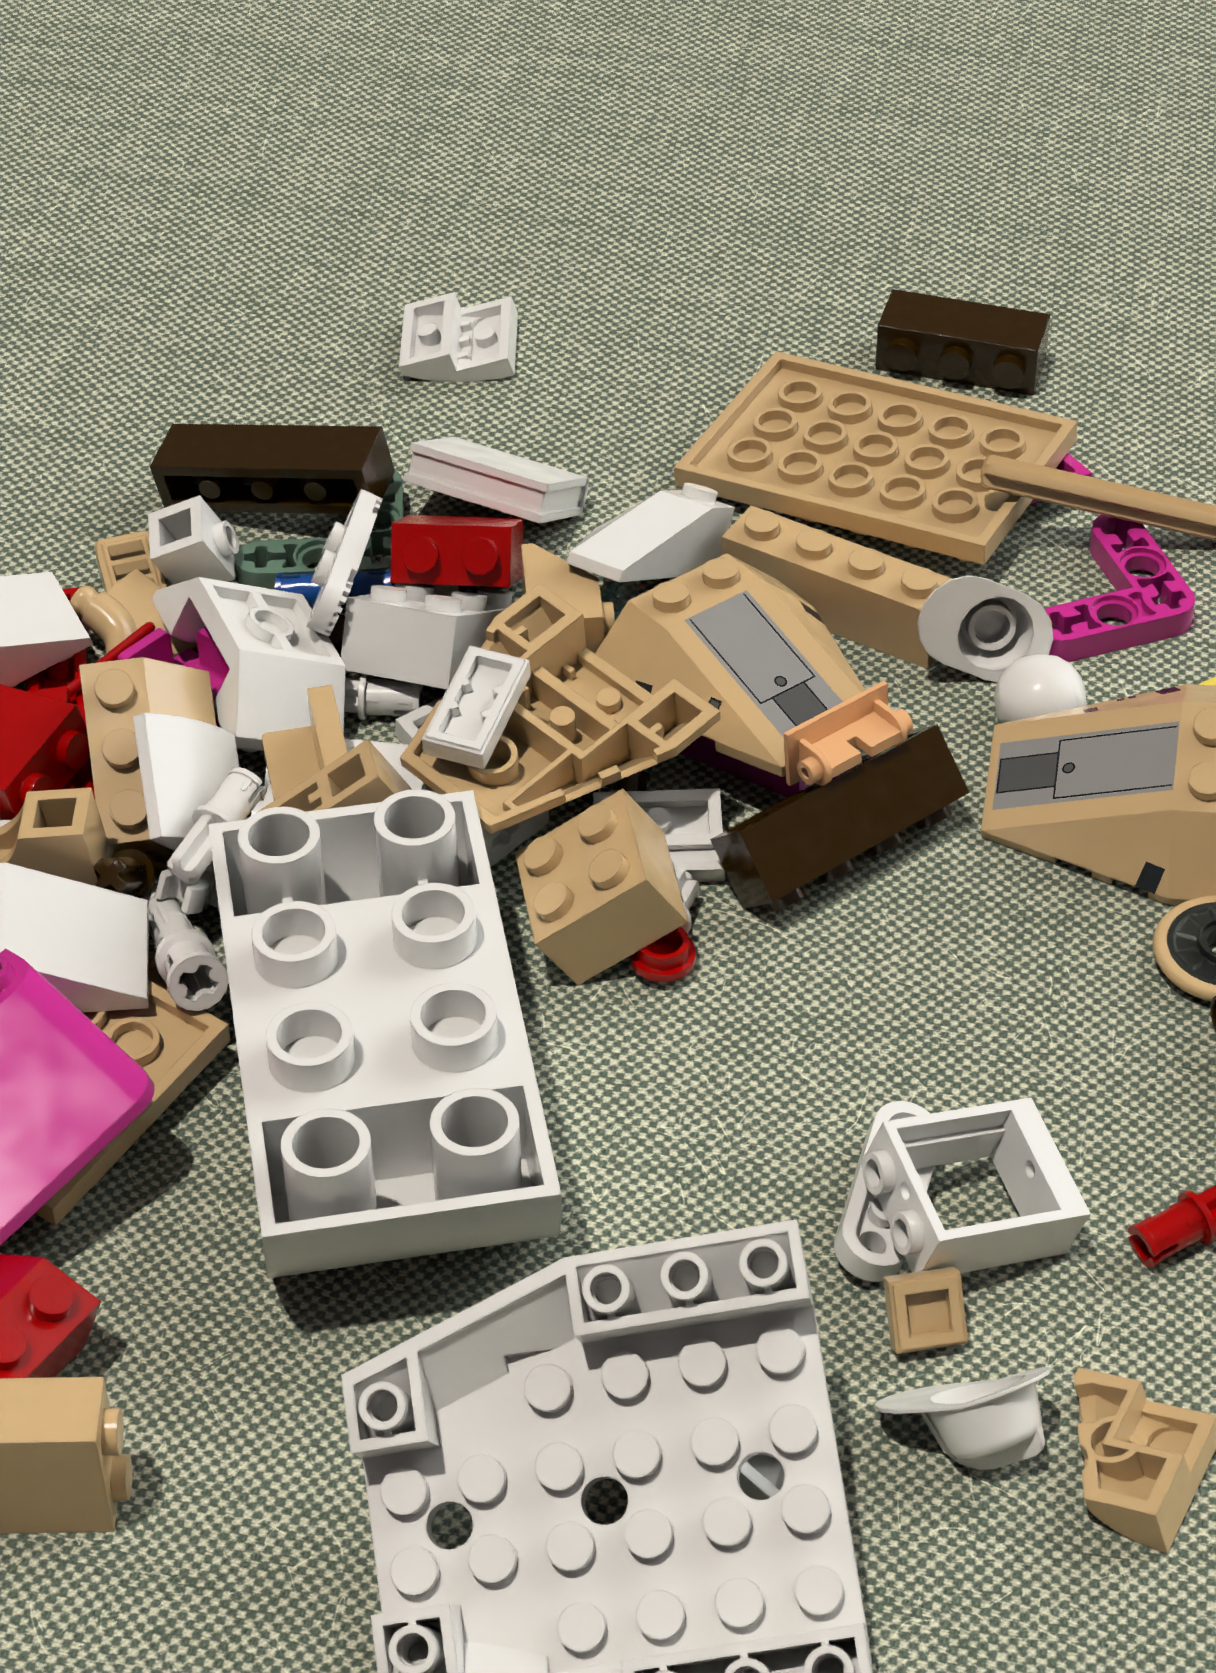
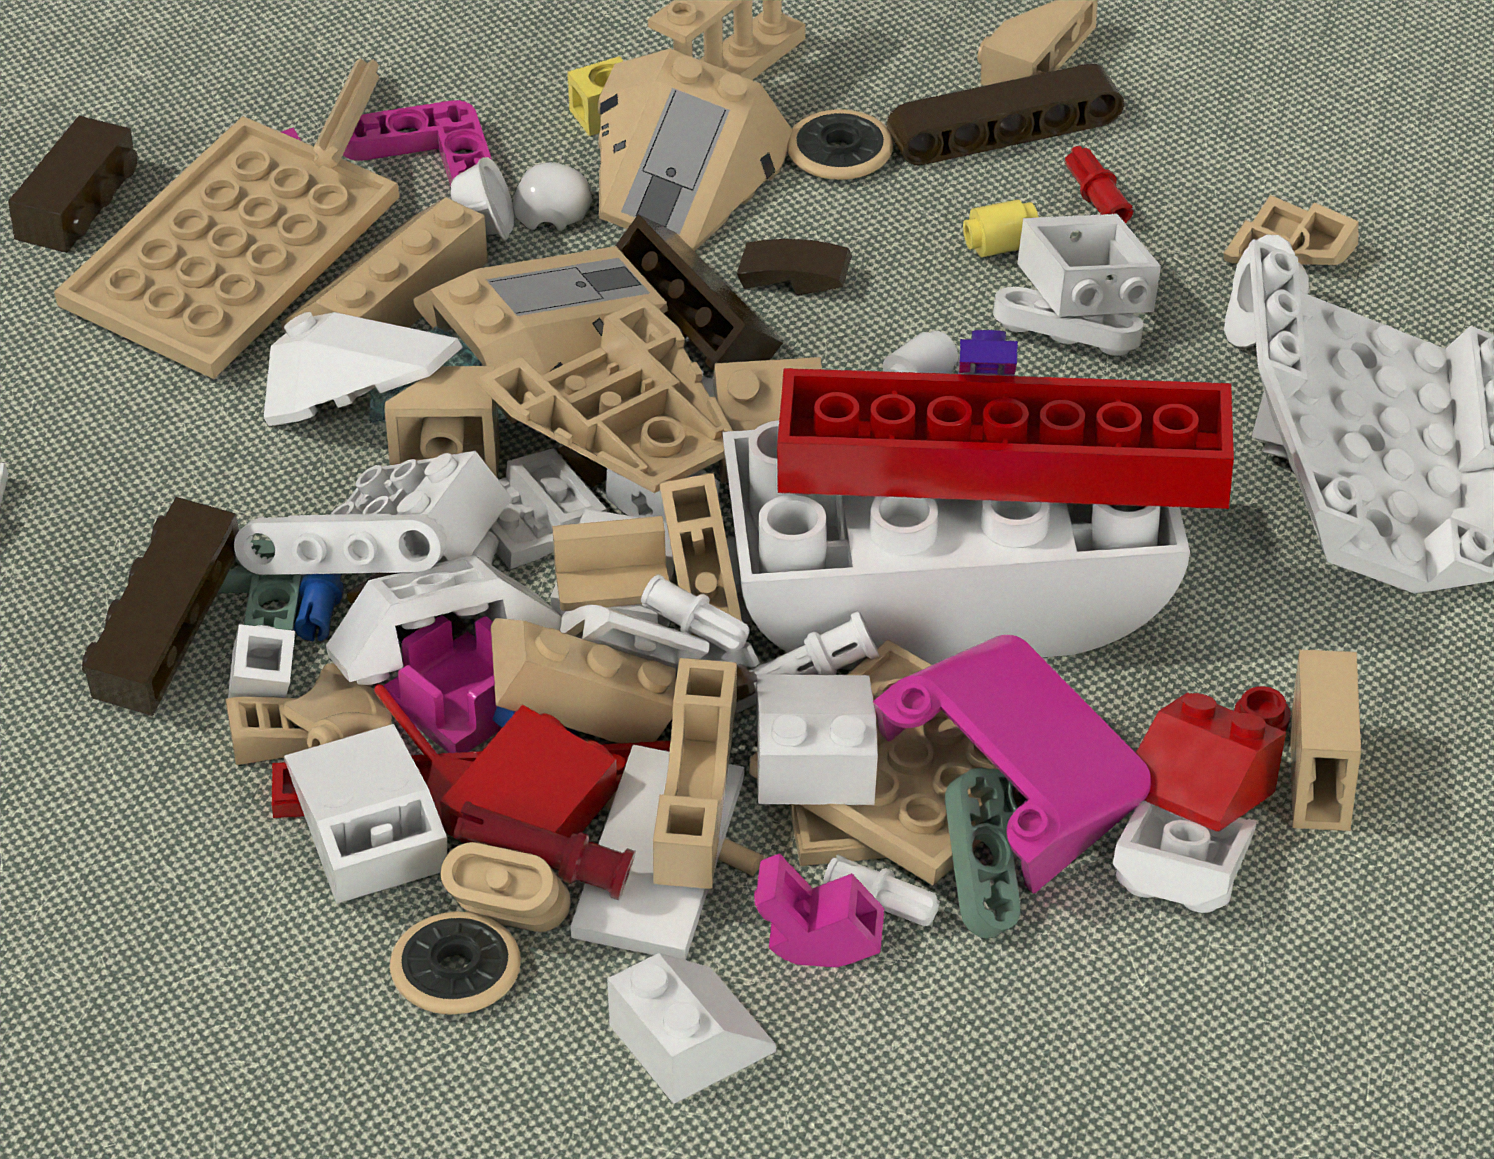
camera: 85 degrees left, 0 degrees up
(141, 1418) = (1267, 704): none -> red plate
(362, 997) = (1005, 438): none -> red brick
(456, 550) = (333, 470): red brick -> none
(476, 707) = (629, 420): white plate -> none
(497, 479) = (207, 465): white piece -> none
(537, 981) = (988, 354): none -> dark purple plate
(766, 1042) = (924, 354): none -> white brick
(832, 739) = (656, 252): light nougat hinge -> none
(925, 1310) = (1179, 310): tan tile -> none
(954, 917) = (805, 263): none -> dark brown slope
(1071, 1111) = (997, 227): none -> light yellow brick

